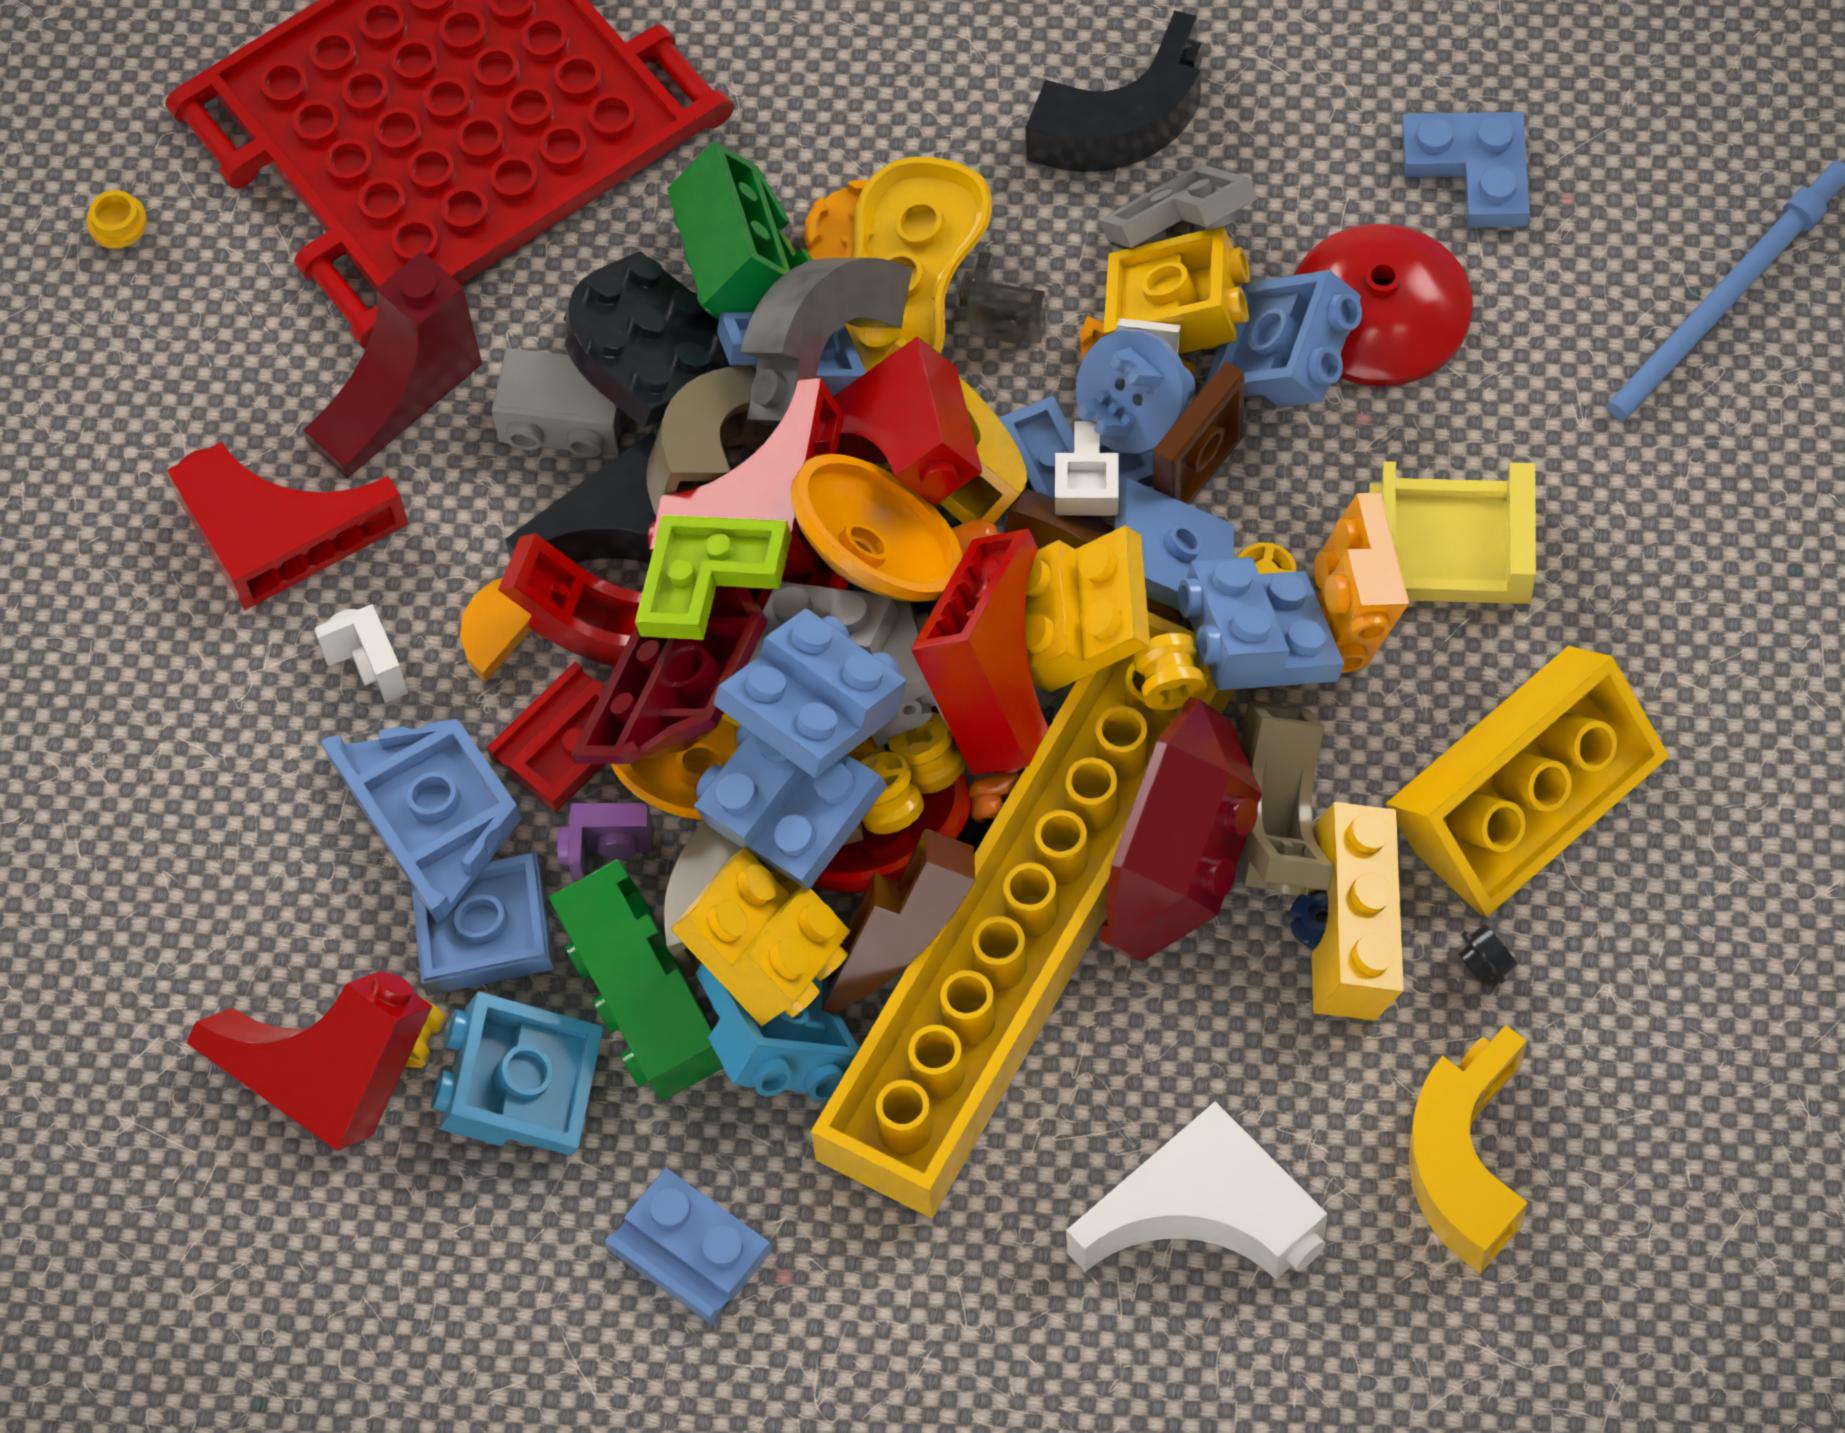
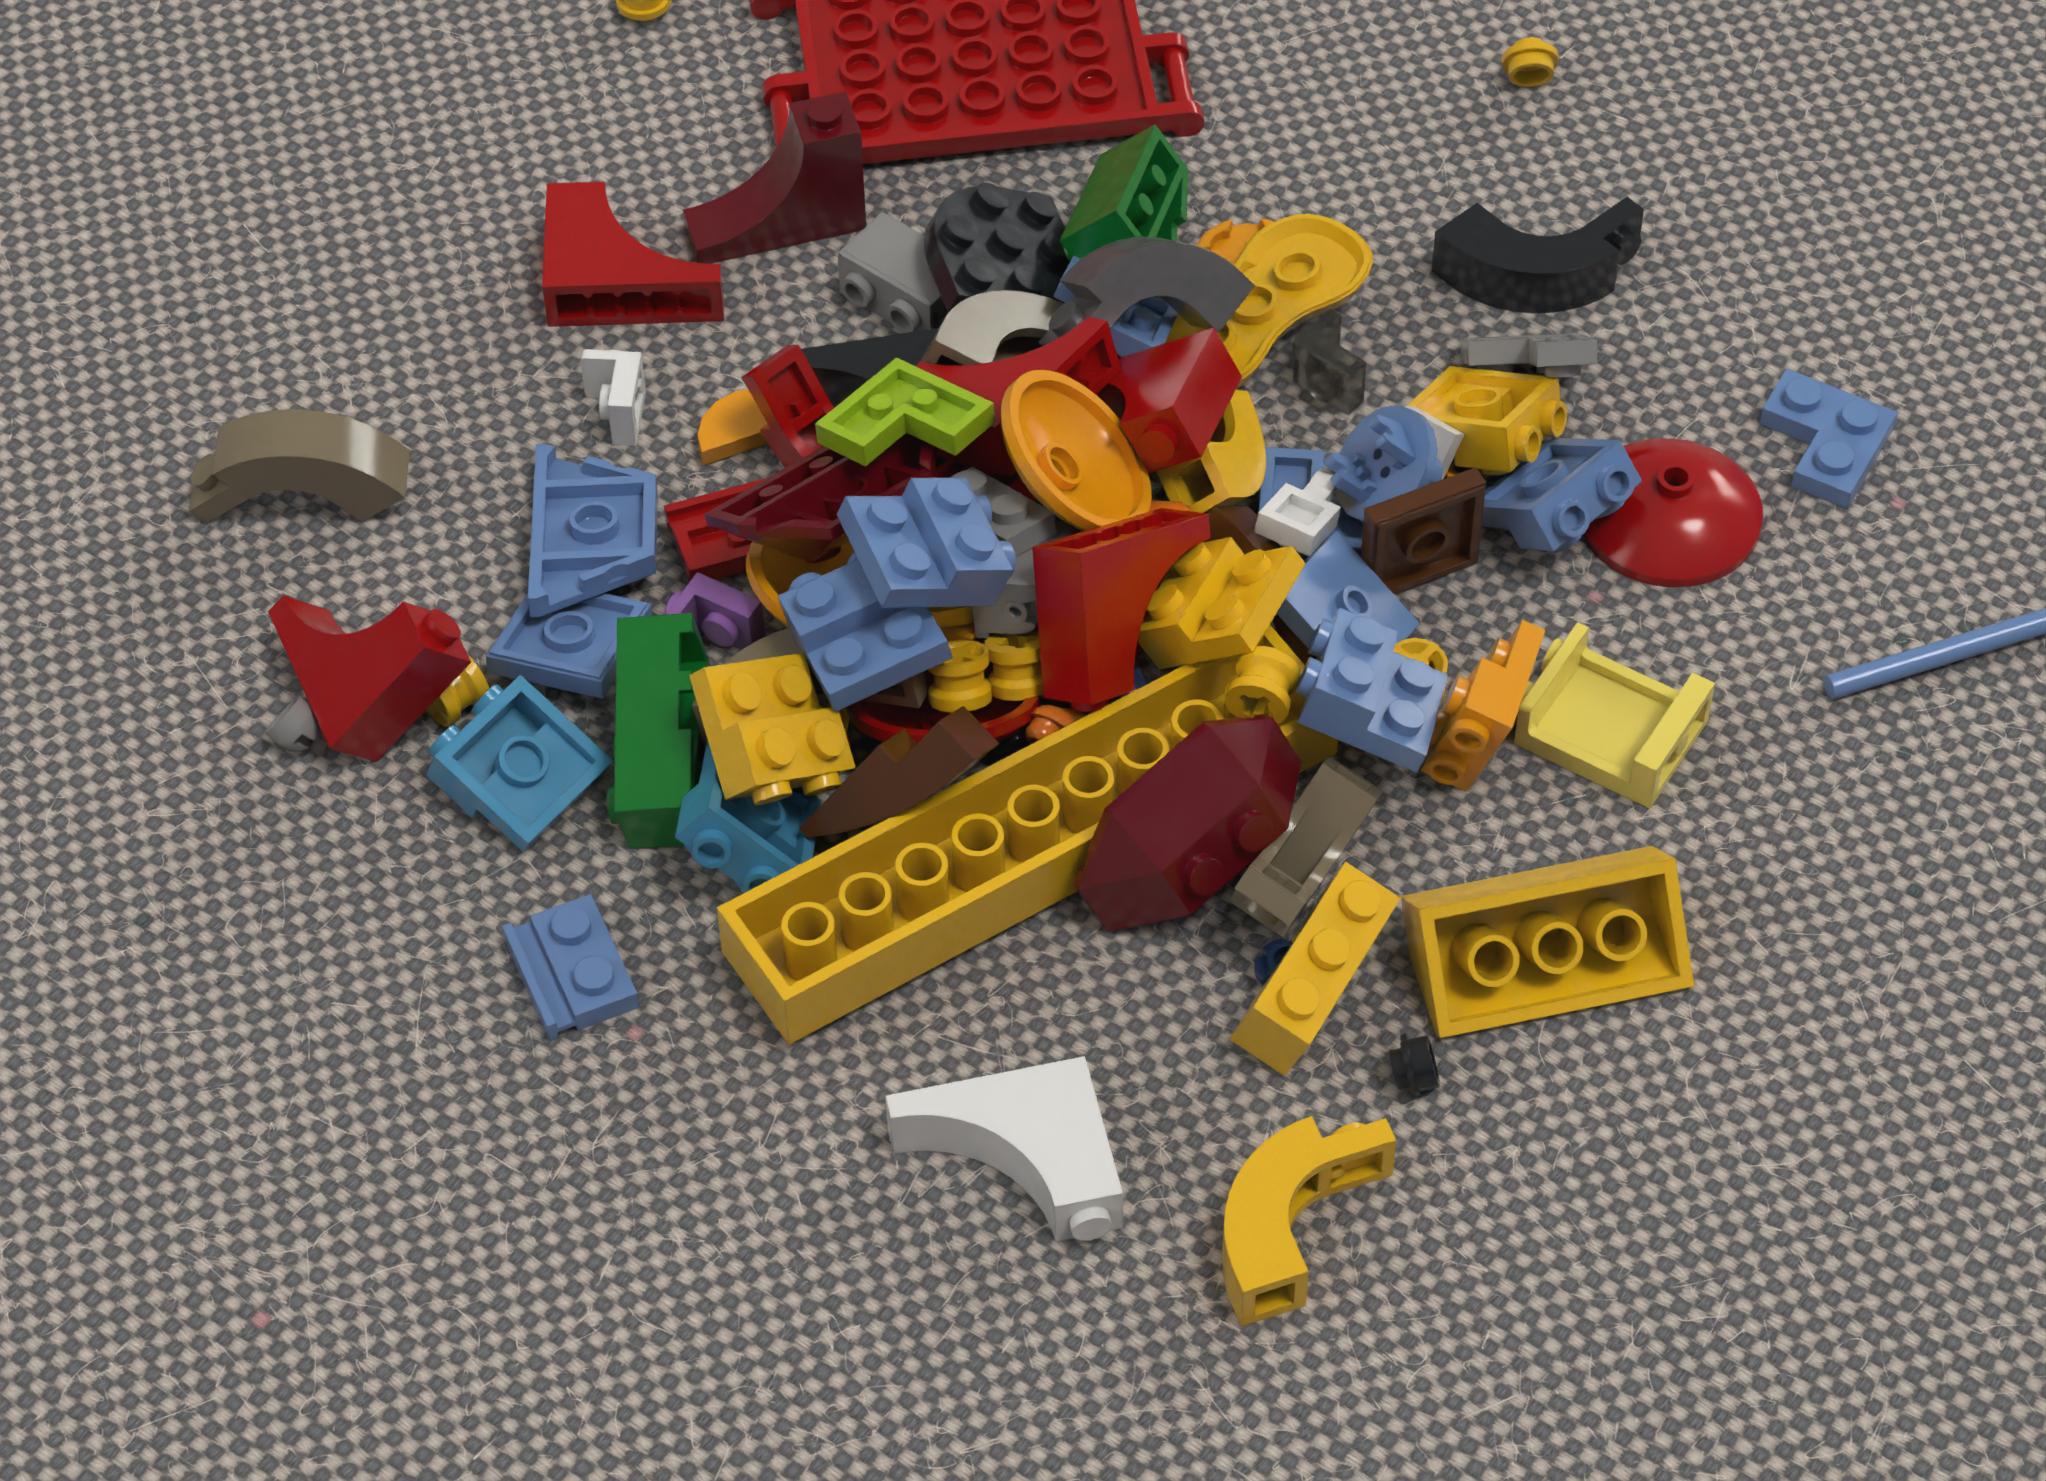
camera: 25 degrees right, 10 degrees down
(111, 870) = (300, 452): none -> dark tan arch
(279, 1141) = (295, 726): none -> light grey hinge

